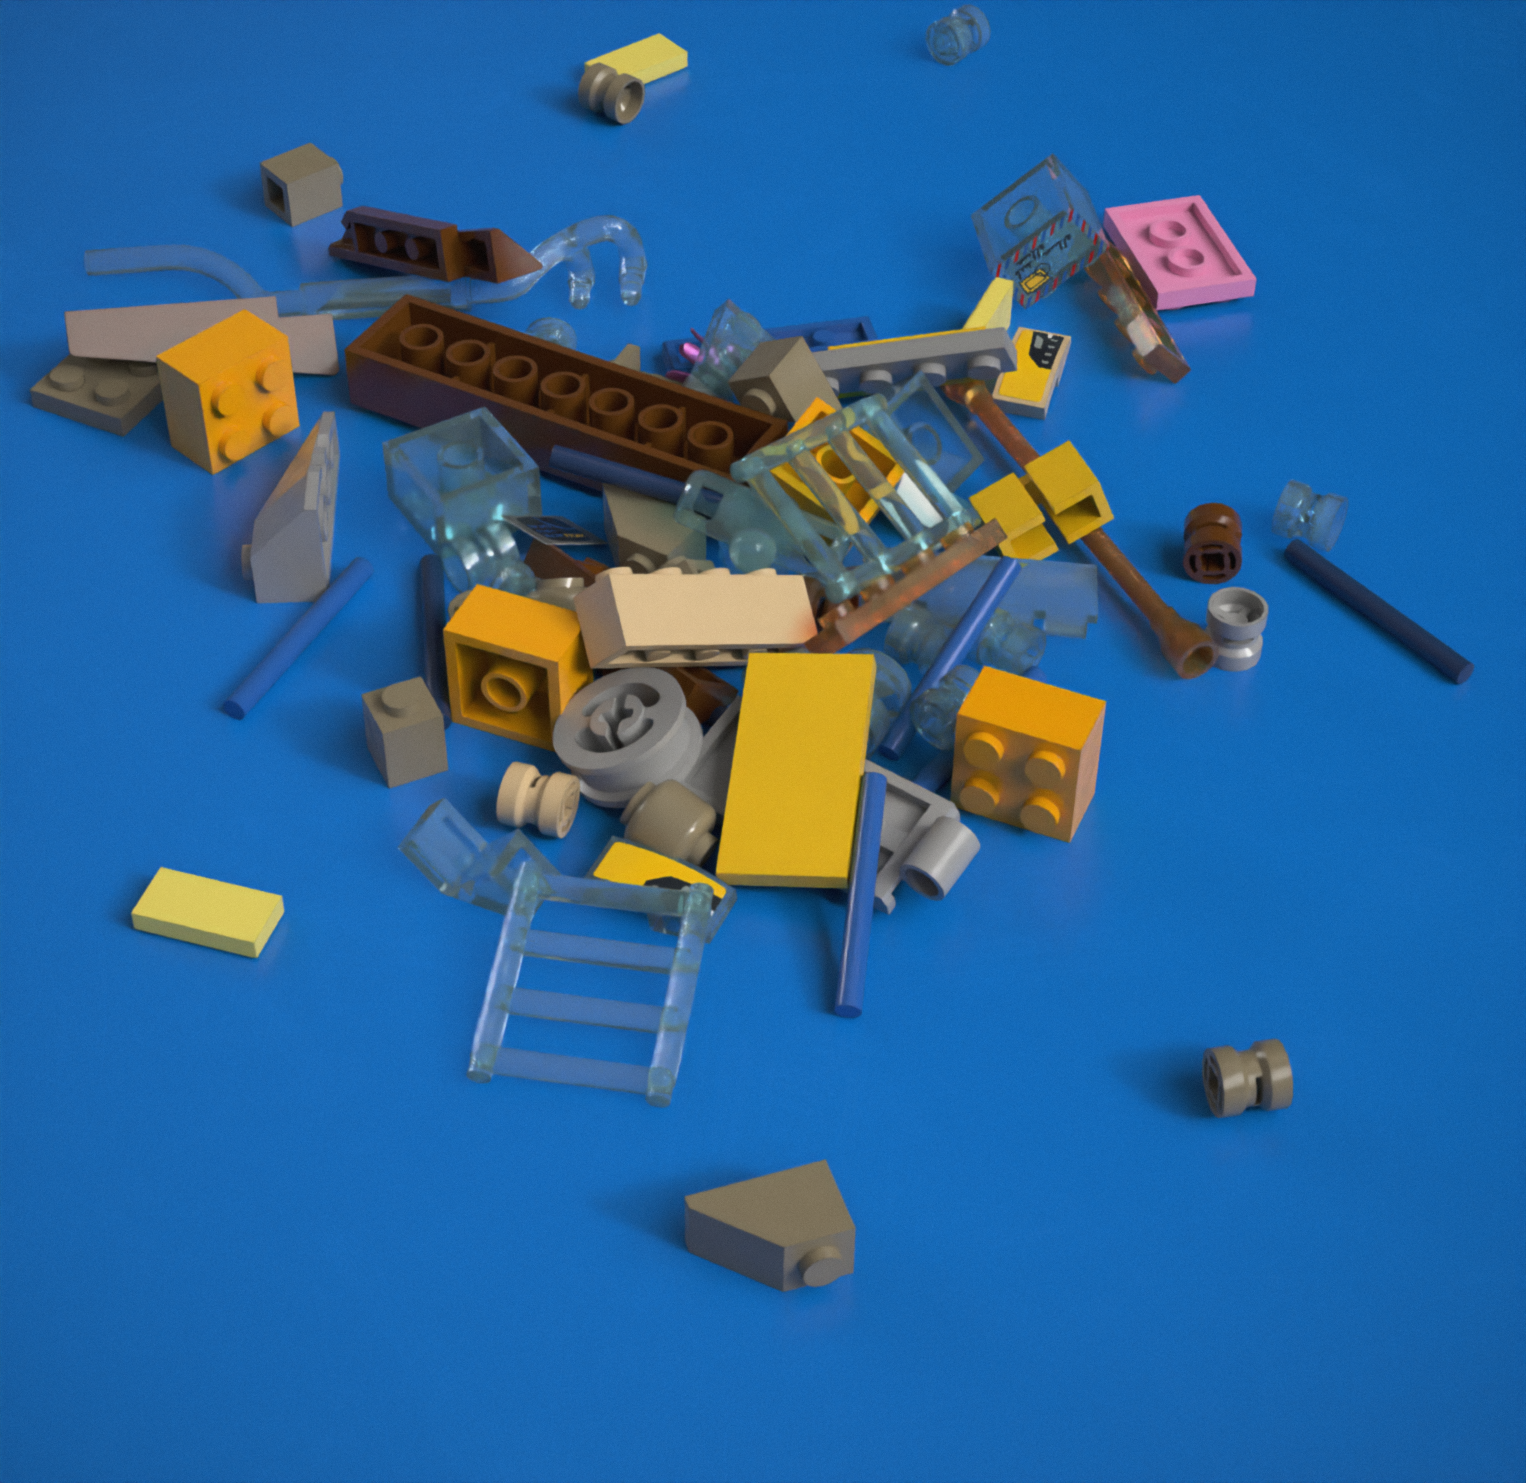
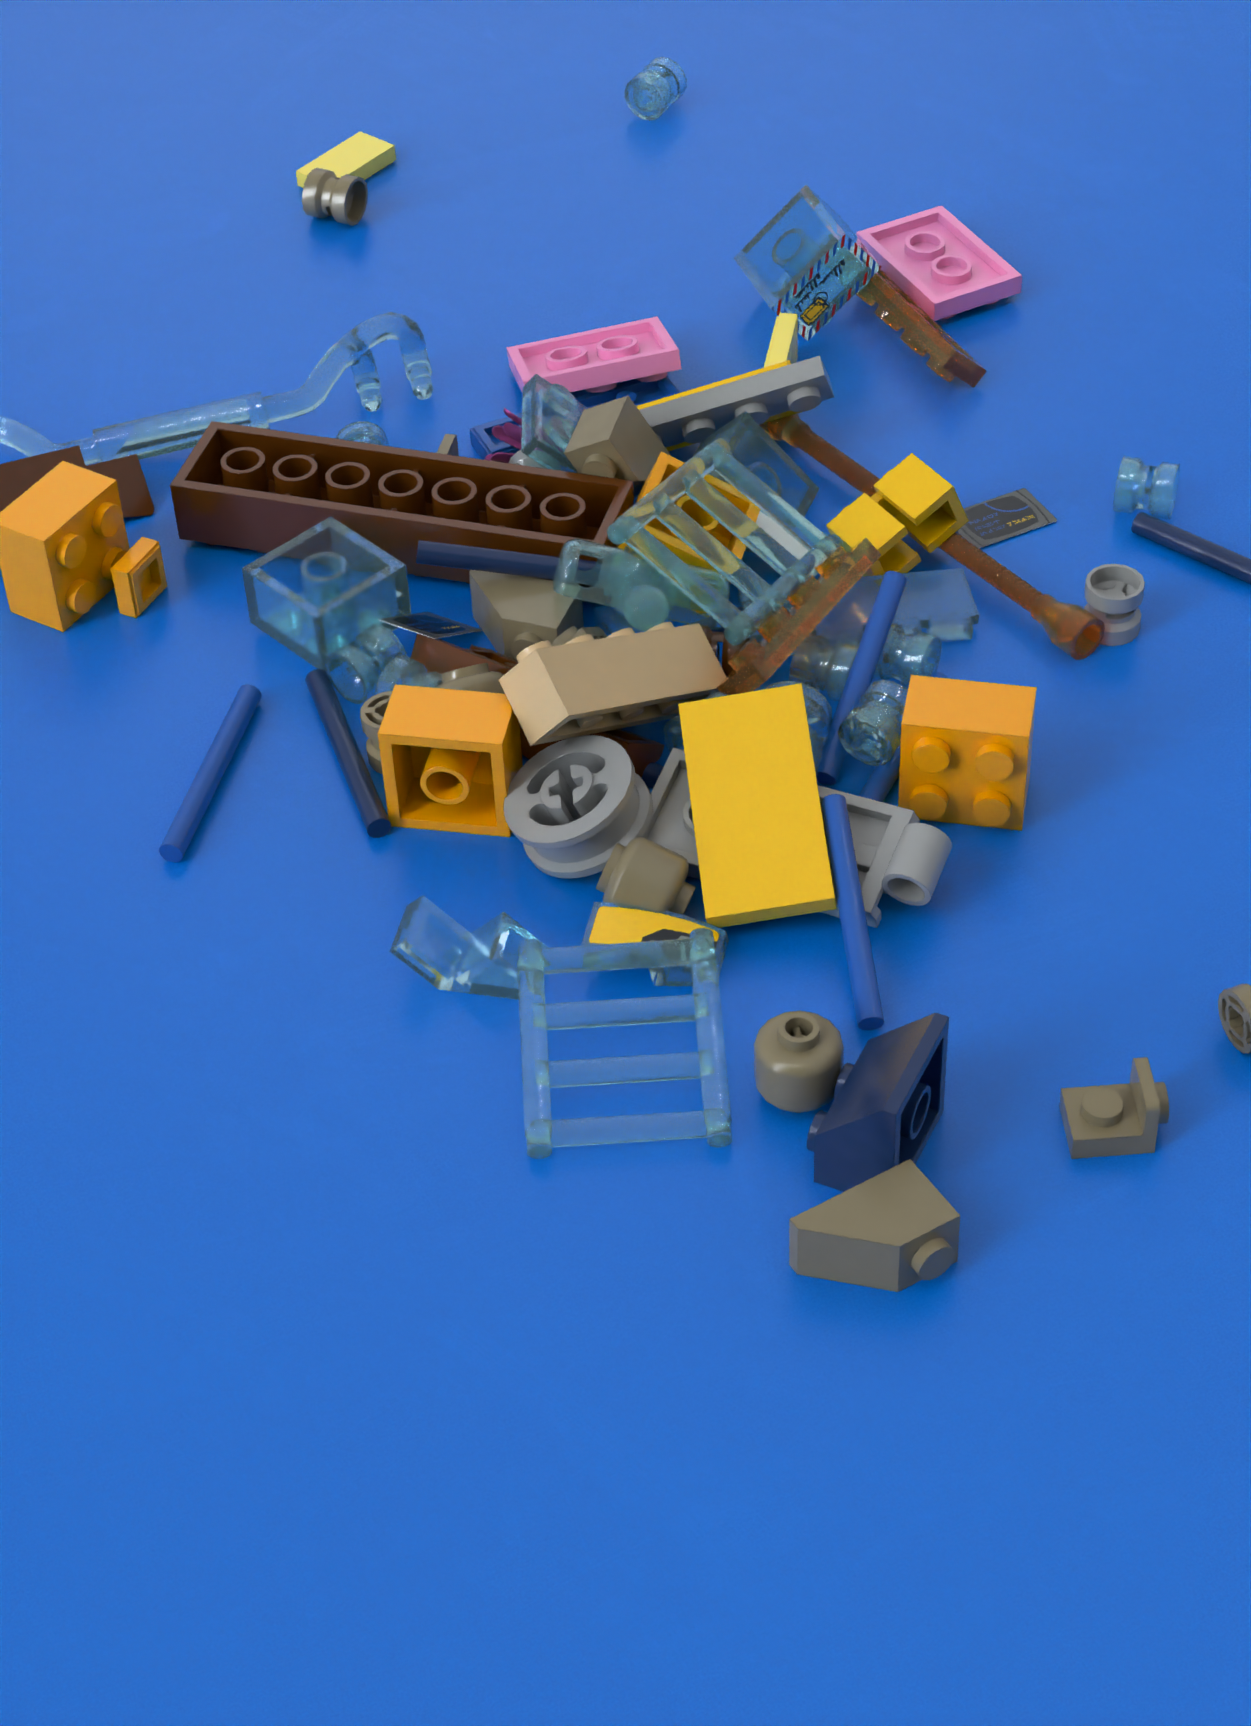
camera: 10 degrees left, 0 degrees up
(208, 912) = (217, 1049): light yellow tile -> none
(290, 429) = (139, 577): none -> light orange tile
(296, 525) = (175, 664): light grey wedge -> none
(301, 184) = (54, 334): dark tan brick -> none
(405, 732) = (355, 842): dark tan brick -> none
(430, 247) = (215, 372): reddish brown wedge -> none
(538, 799) = (507, 882): tan wheel -> none
(755, 1036) = (798, 1061): none -> dark tan head
(806, 292) = (598, 357): none -> bright pink plate
(823, 1100) = (882, 1105): none -> dark blue slope
(1039, 370) = (842, 416): slope -> none
(1058, 1156) = (1115, 1116): none -> dark tan bracket
(1150, 520) = (1004, 518): none -> sticker
(1212, 543) = (1065, 529): reddish brown wheel -> none

